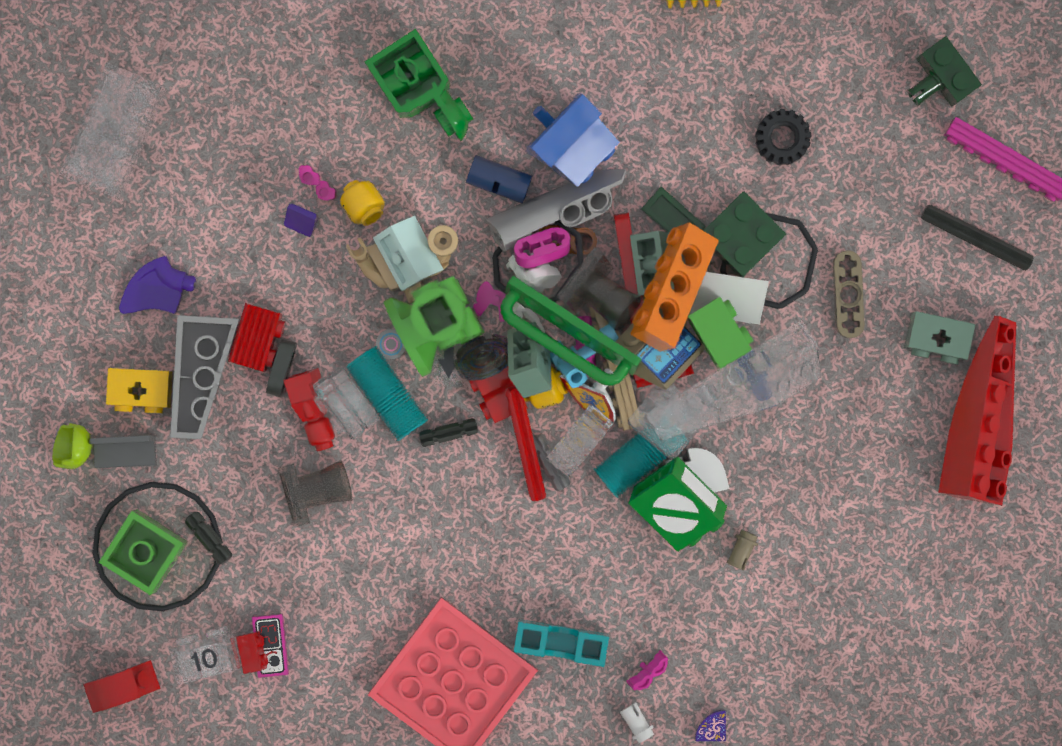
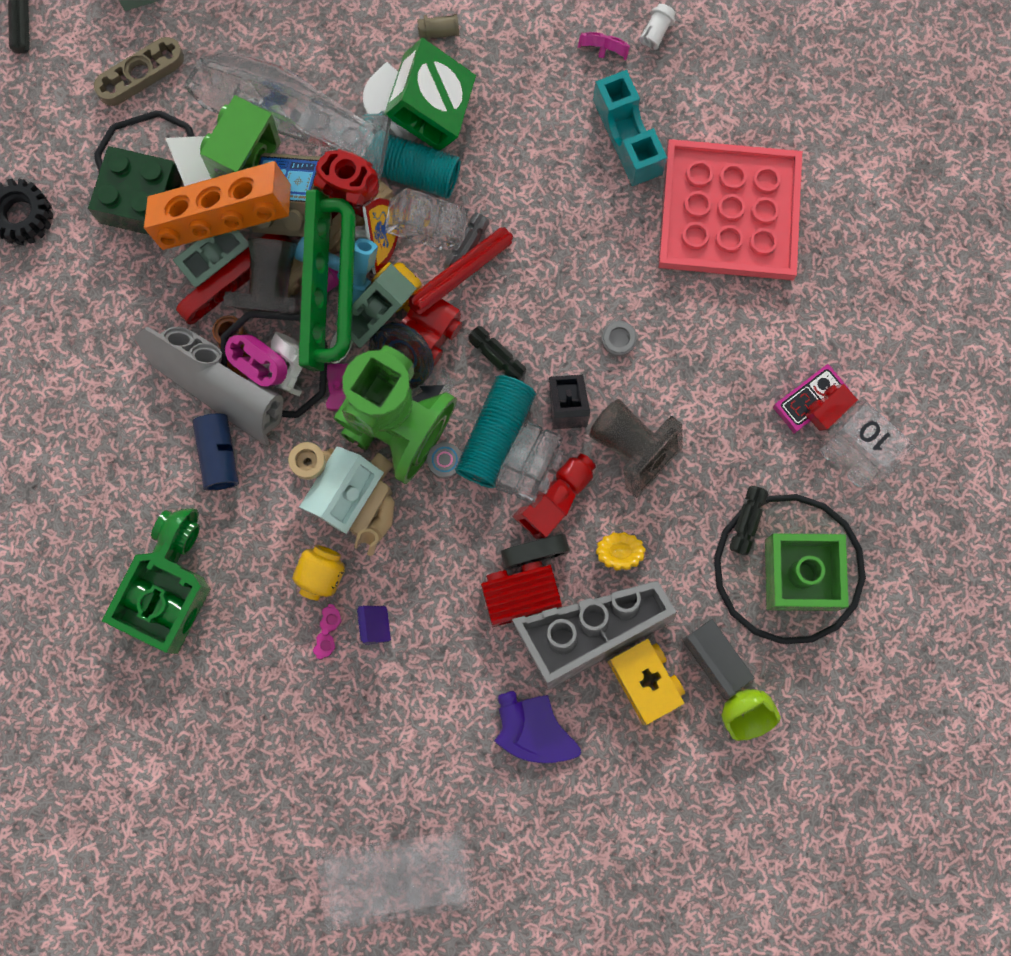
camera: 120 degrees left, 10 degrees down
(121, 686) = (953, 510): red brick -> none
(243, 430) = (620, 551): none -> yellow piece
(379, 463) = (568, 402): none -> black slope
(404, 531) = (619, 338): none -> light grey tile
(573, 140) = (127, 397): piece -> none
(635, 396) = (347, 177): none -> red piece
(668, 211) = (156, 273): dark green tile -> none

